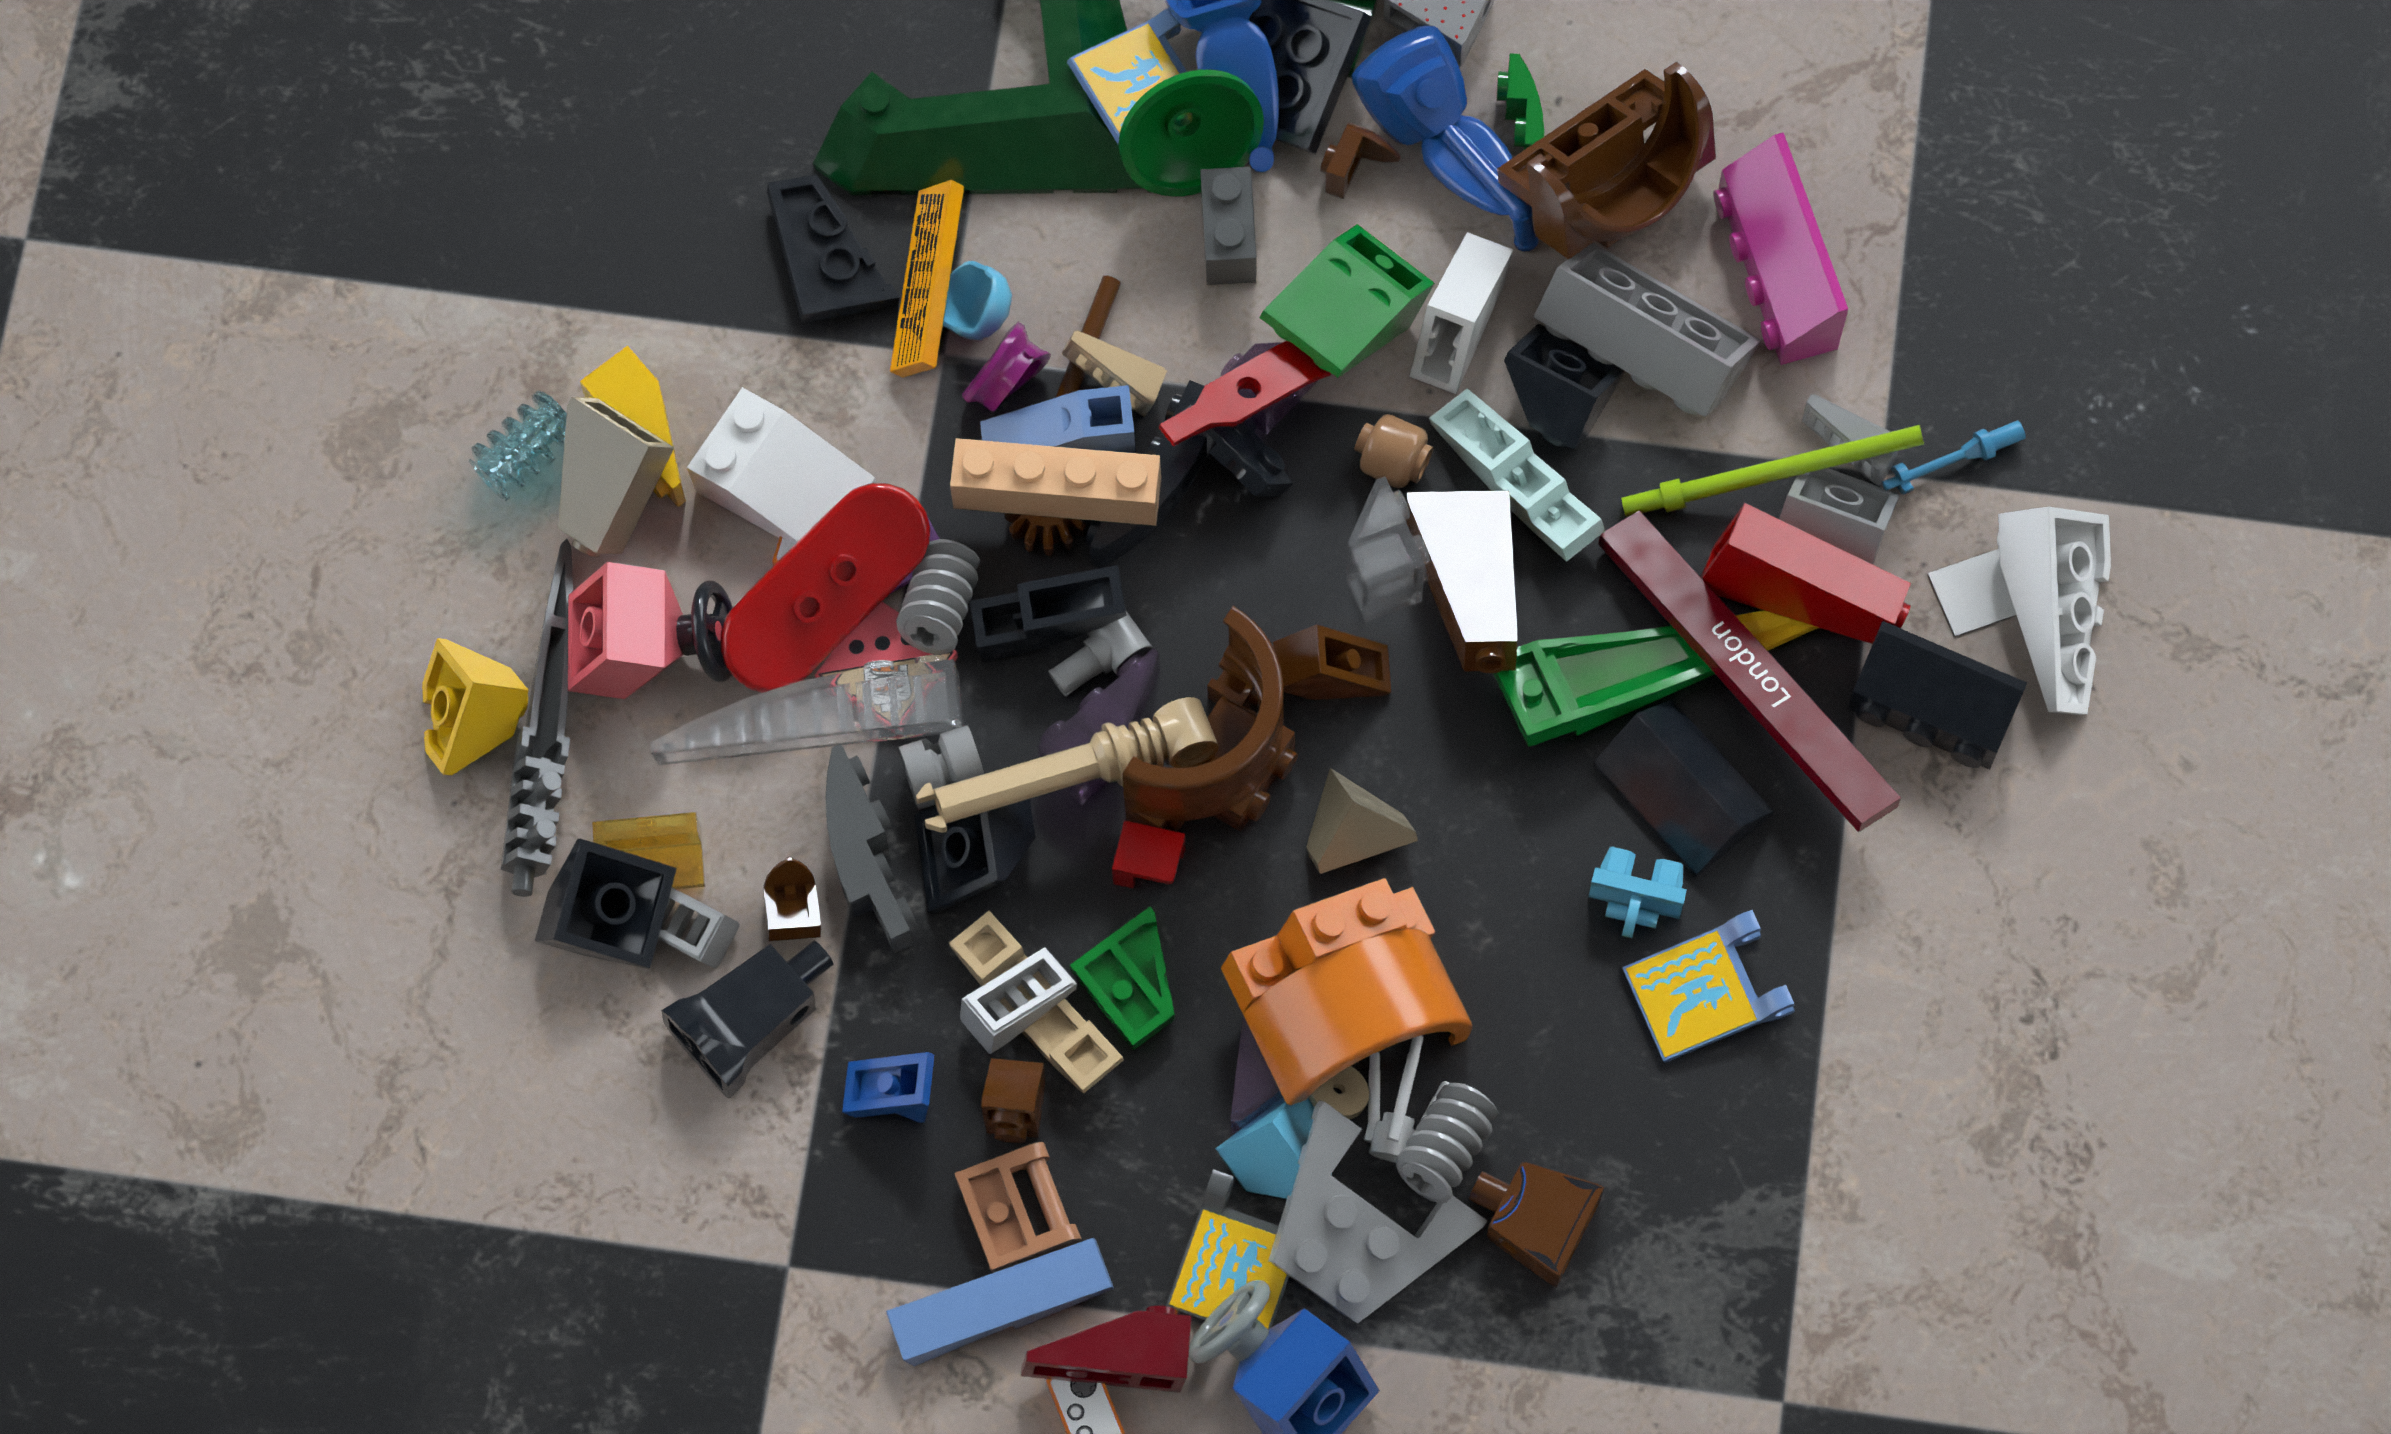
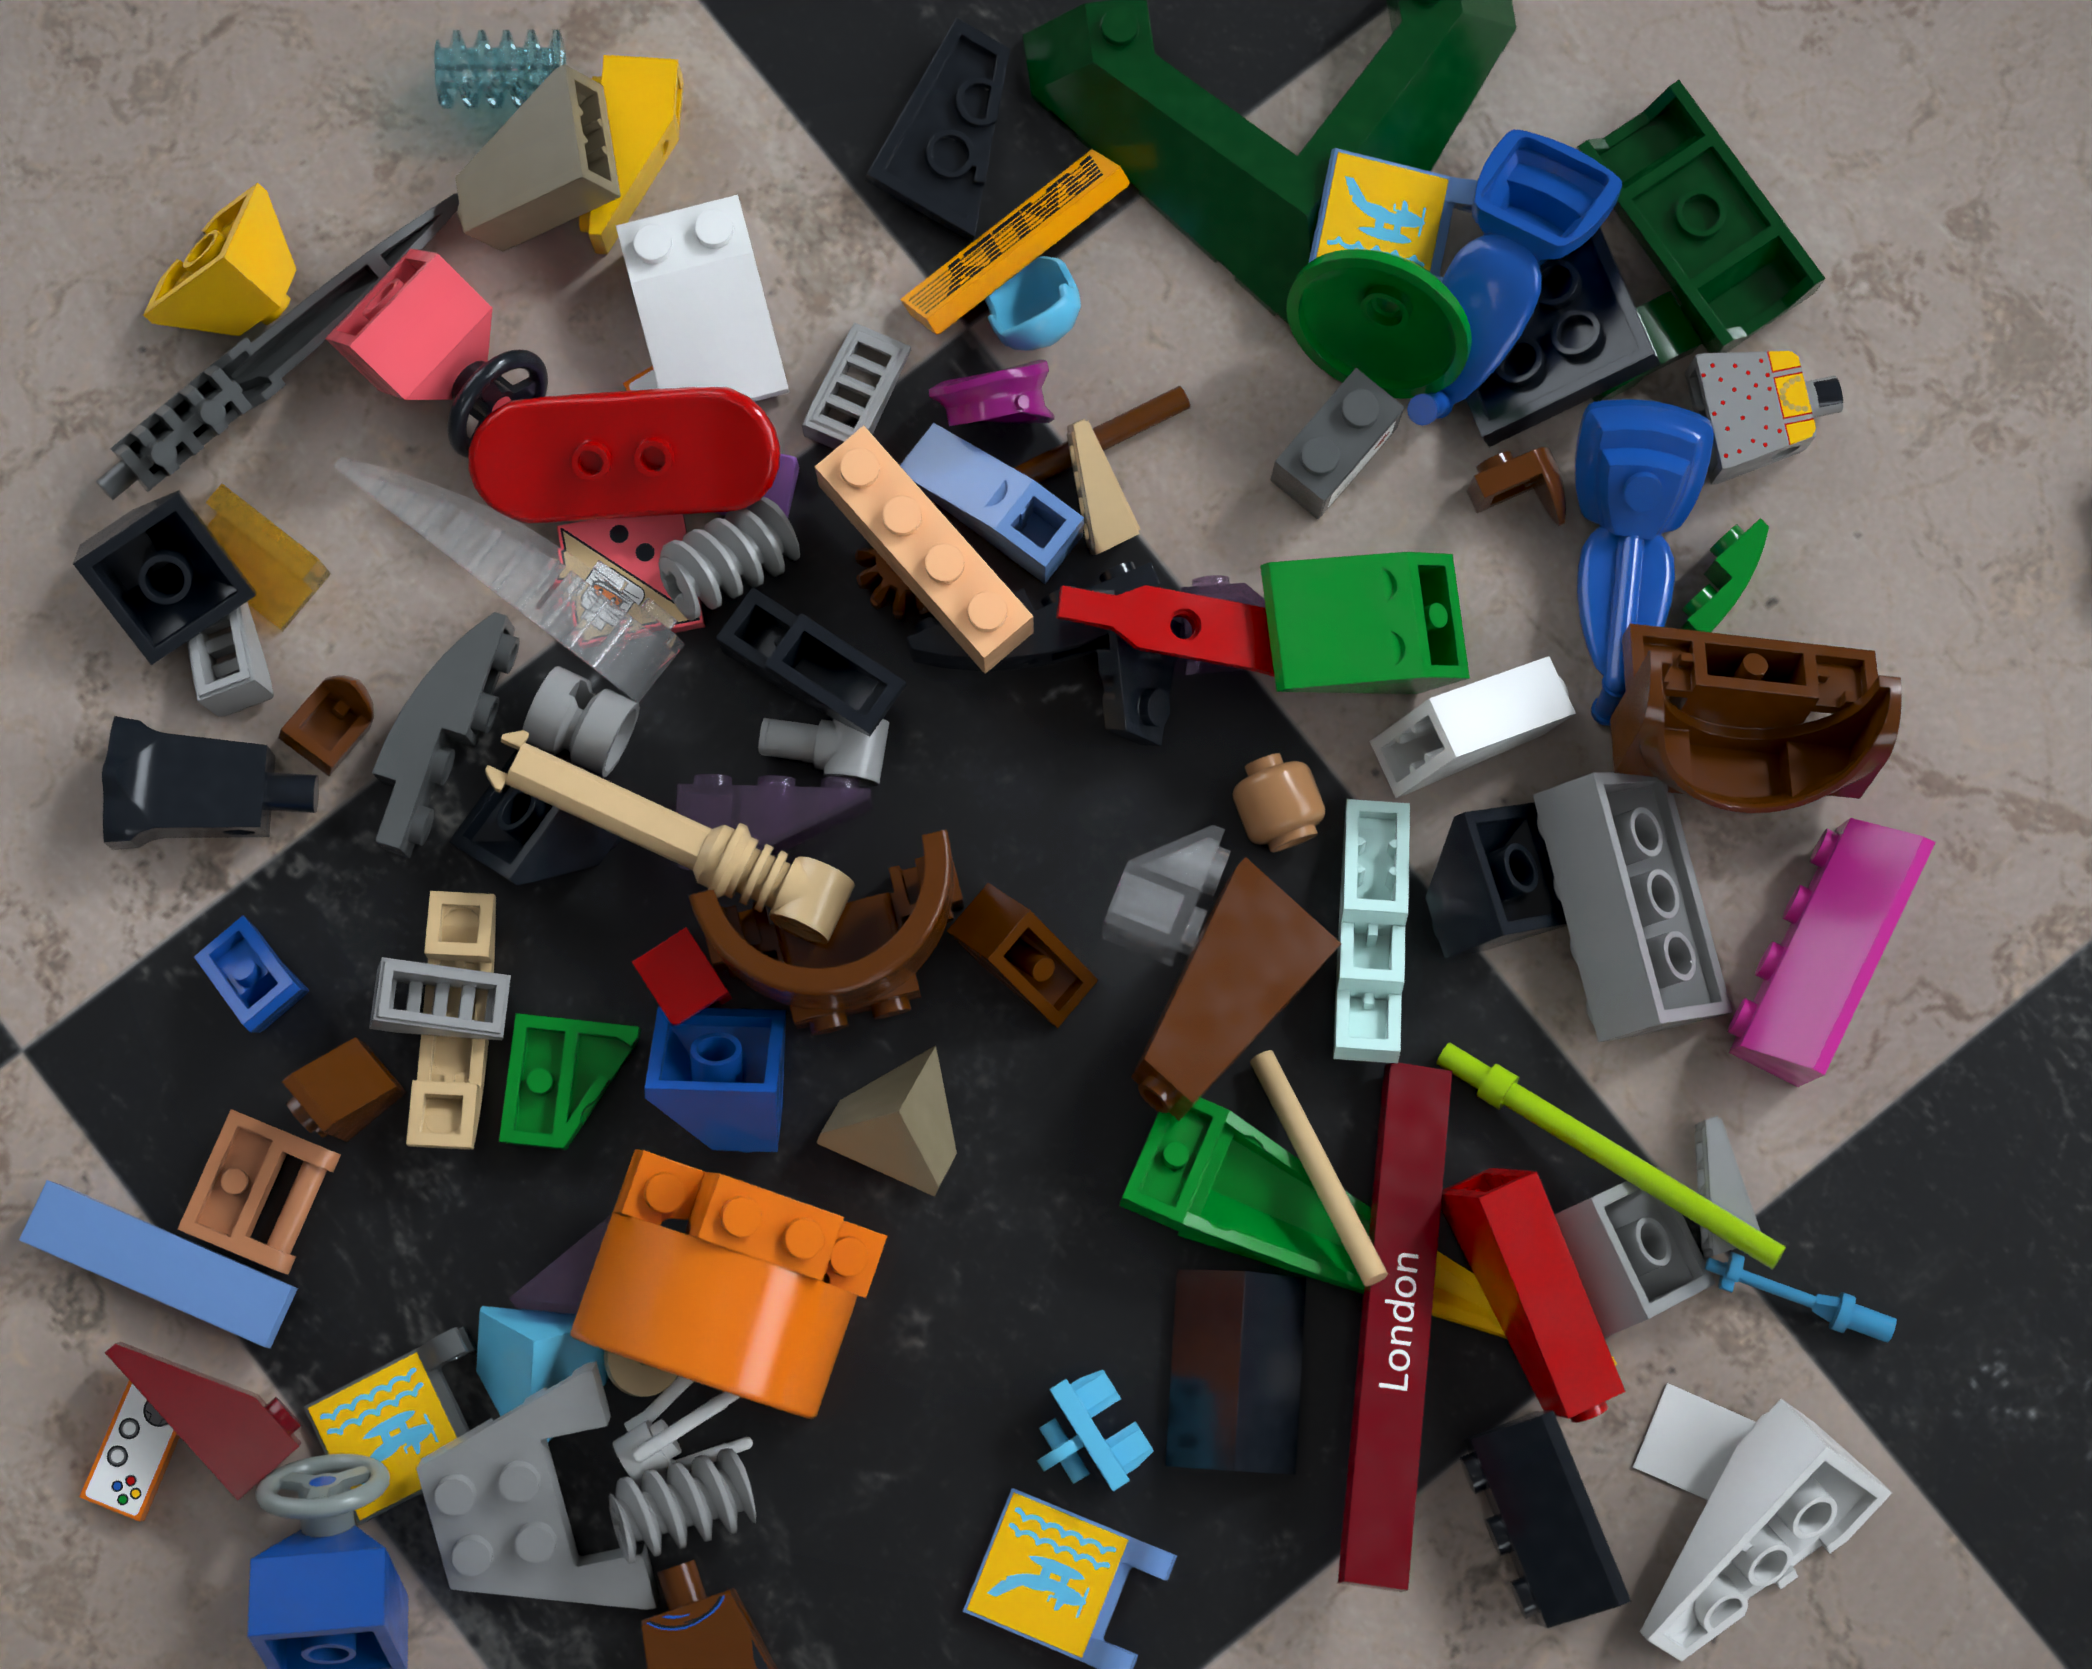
camera: 40 degrees right, 10 degrees up
(926, 478) = (832, 432): none -> light grey slope
(1228, 887) = (721, 1076): none -> blue slope
(1618, 626) = (1318, 1168): none -> tan bar

